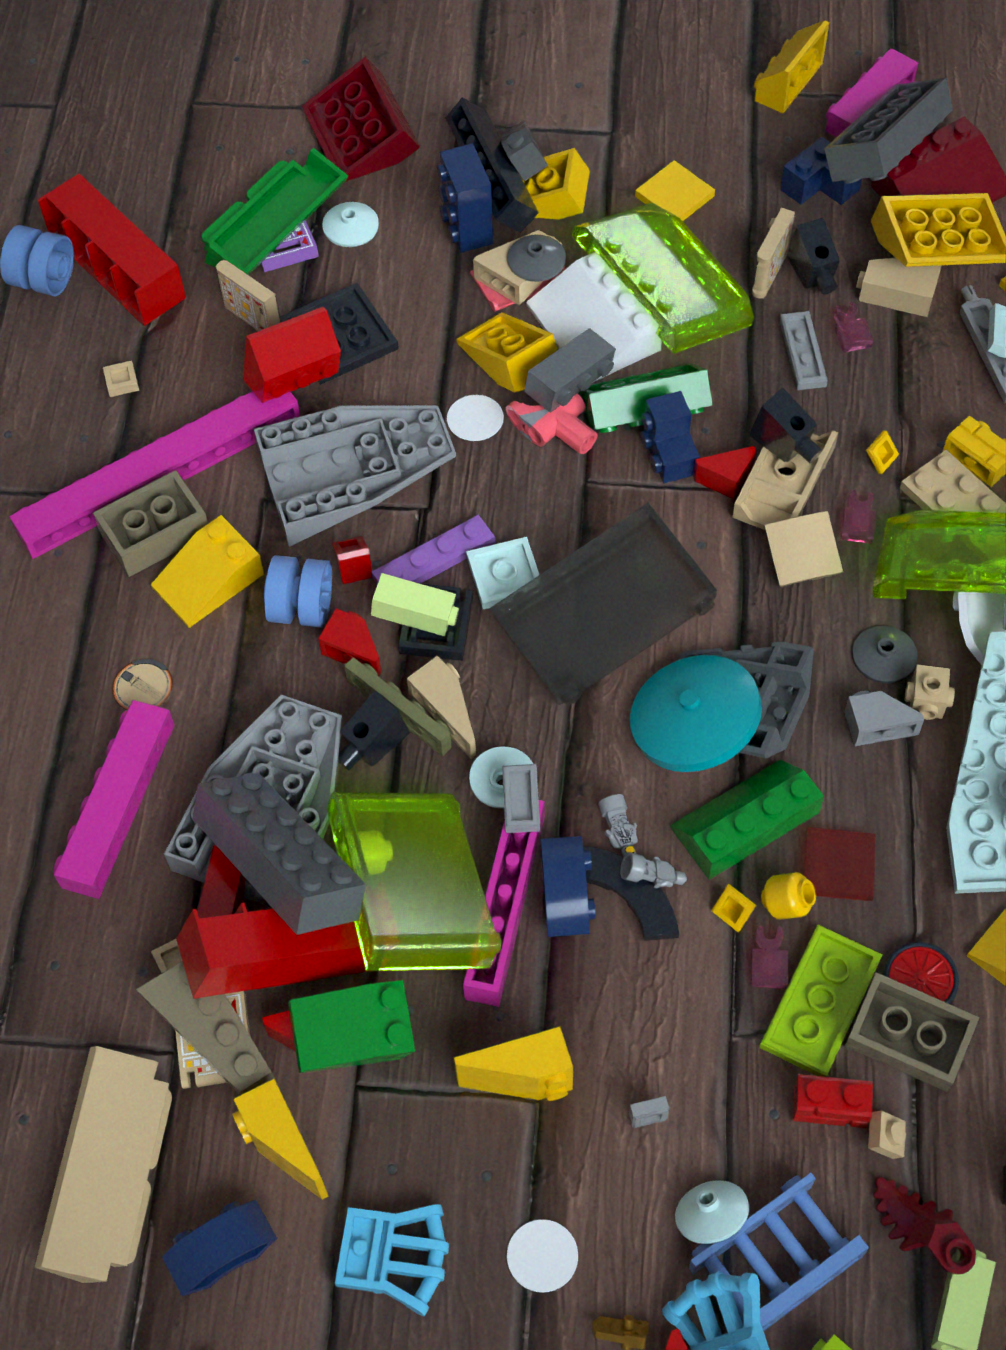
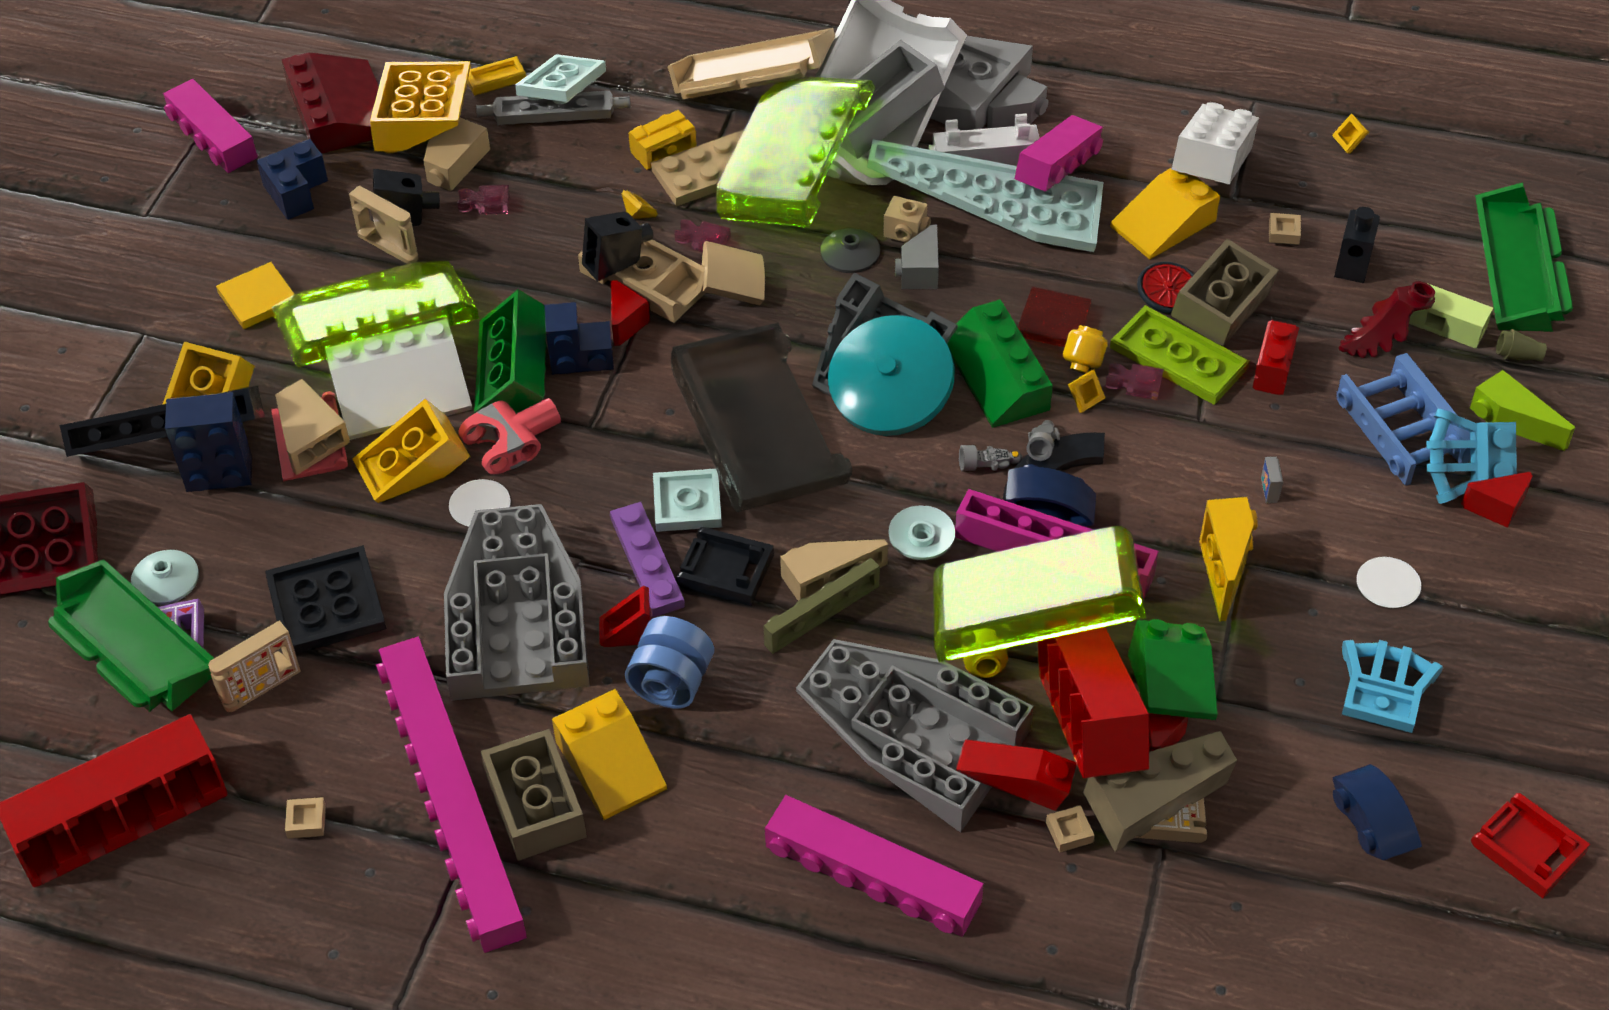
camera: 80 degrees left, 10 degrees down
(37, 260) = (97, 879): medium blue wheel -> none
(105, 1168) = (1289, 898): tan slope -> none
(143, 682) = (730, 839): tan sticker -> none
(269, 1124) = (1277, 742): yellow slope -> none
(278, 853) = (1004, 676): dark grey brick -> none
(291, 355) = (374, 621): red slope -> none
(348, 637) = (737, 633): red slope -> none
(371, 732) = (850, 616): black torso -> none
(414, 604) = (714, 567): yellowish green brick -> none
(521, 798) = (965, 502): light grey tile -> none
(523, 150) = (147, 390): dark grey slope -> none
(536, 258) = (314, 400): dark grey dish -> none
(570, 370) = (475, 394): dark grey brick -> none
(628, 1332) = (1461, 531): pearl gold piece -> none
(712, 1212) = (1373, 459): light aqua dish -> none
(792, 67) = (144, 168): yellow slope -> none
(803, 350) = (497, 238): light grey tile -> none
(887, 1135) = (1309, 329): tan plate -> none
(888, 130) = (287, 101): dark grey brick -> none

